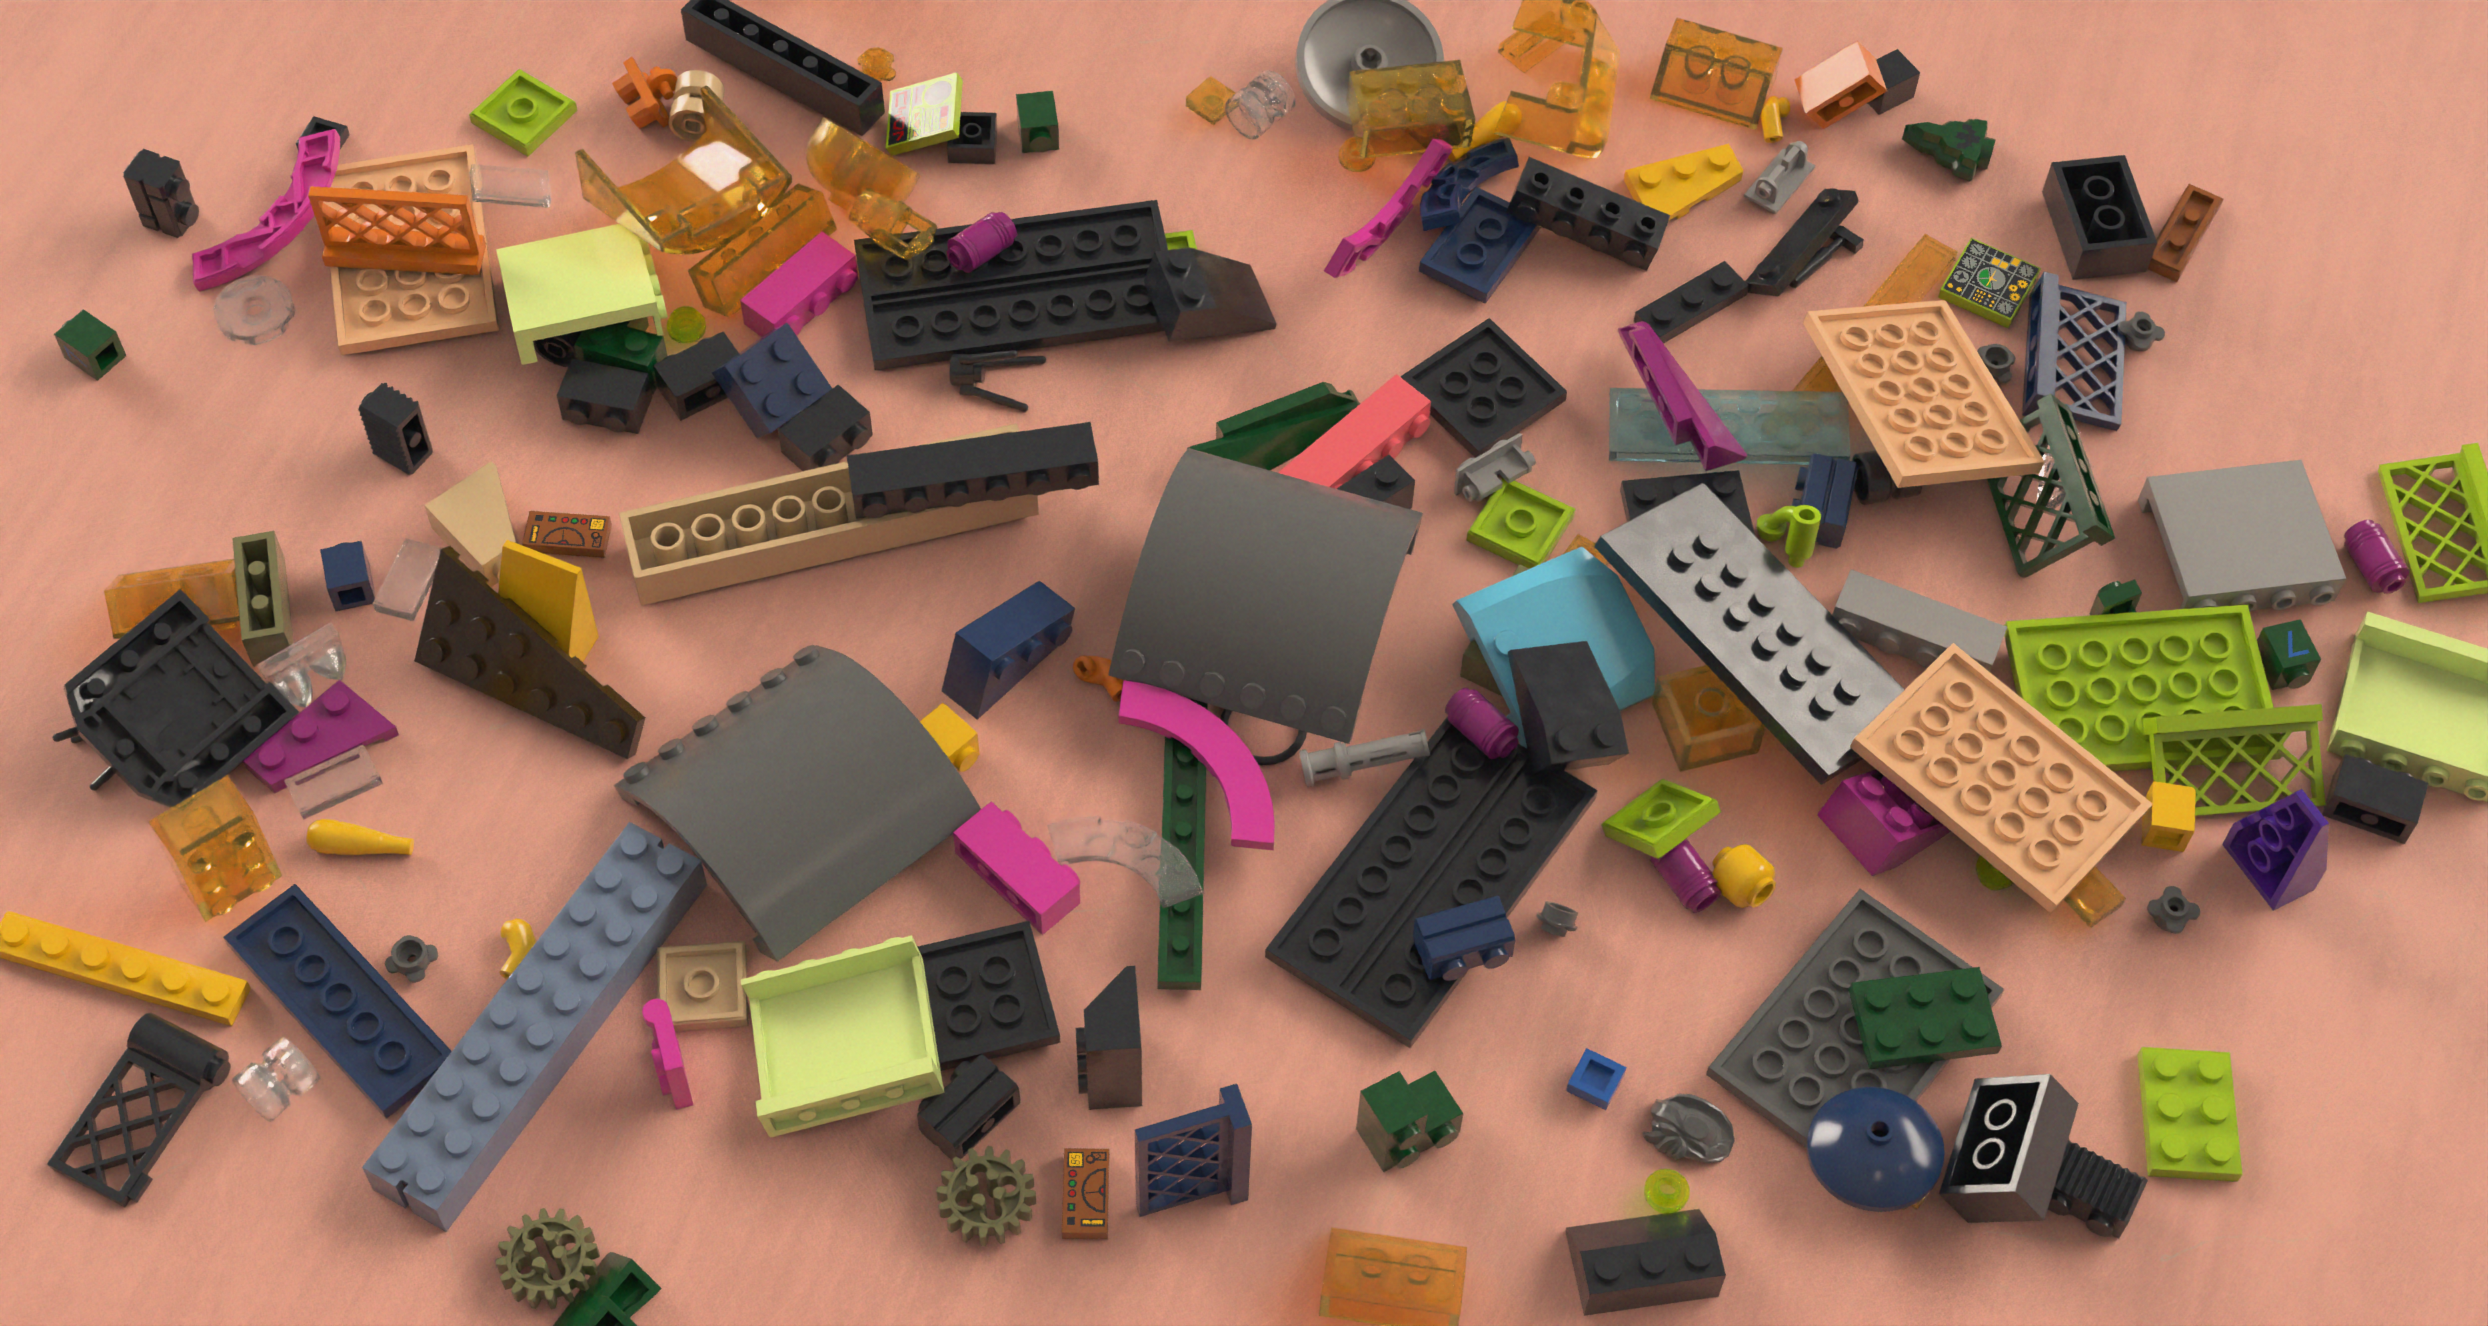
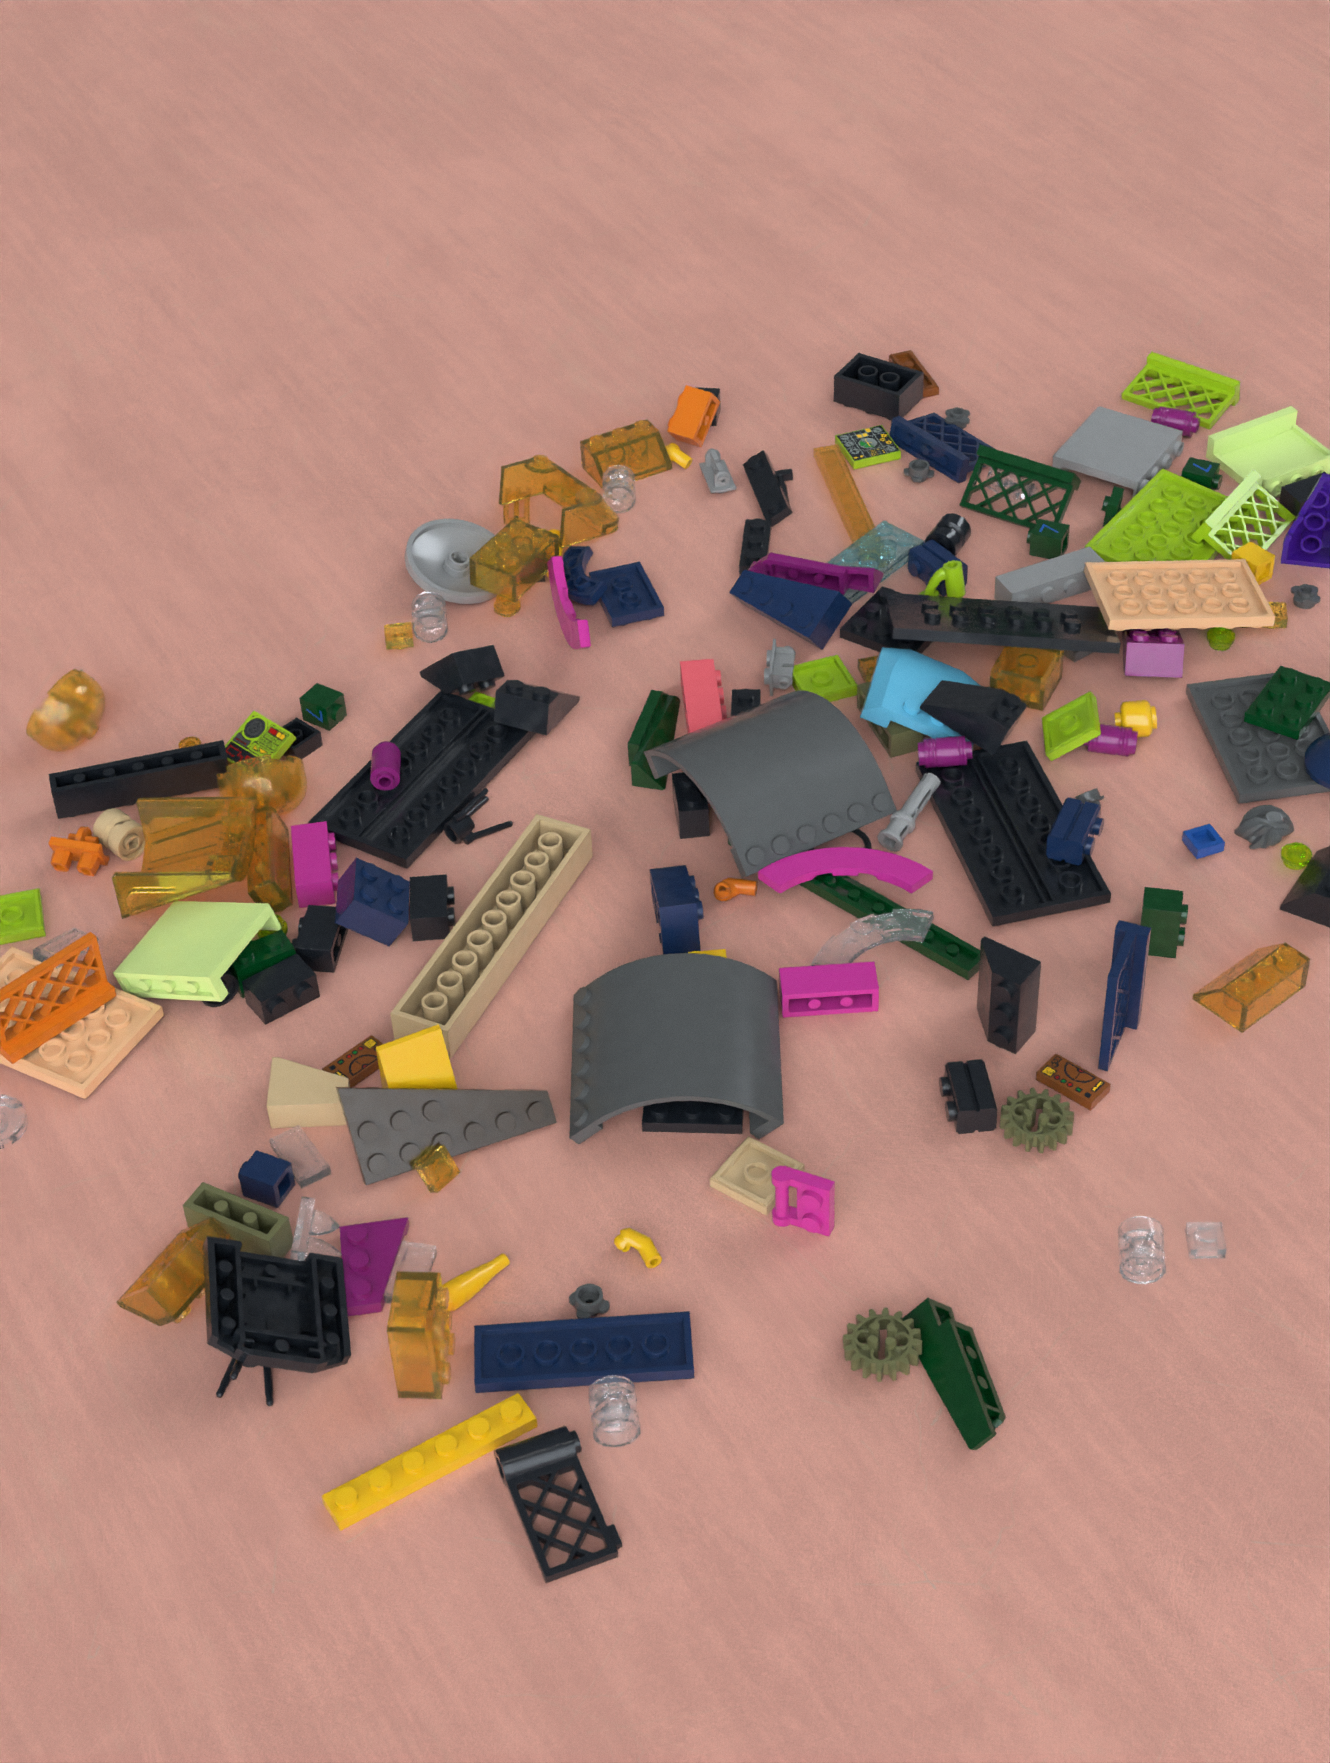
camera: 45 degrees left, 15 degrees down
(395, 428) = (190, 1088): black brick -> none
(473, 704) = (437, 1168): none -> clear yellow plate
(535, 1027) = (712, 1264): sand blue piece -> none
(843, 1036) = (869, 1121): yellowish green panel -> none
(887, 219) = (325, 792): clear yellow piece -> none
(973, 470) = (554, 842): black brick -> none
(988, 995) = (897, 1053): black plate -> none
(1196, 201) = (465, 671): none -> black slope
(1485, 388) = (727, 638): black plate -> none
(1588, 214) = (661, 541): black brick -> none
(1594, 411) = (798, 607): none -> dark blue wedge
(1647, 110) = (619, 488): none -> clear wheel
(1684, 180) = (674, 509): yellow wing -> none
(1922, 393) = (919, 492): light nougat plate -> none
(1953, 144) = (772, 409): dark green rock -> none
(1994, 576) = (1048, 539): none -> dark green brick

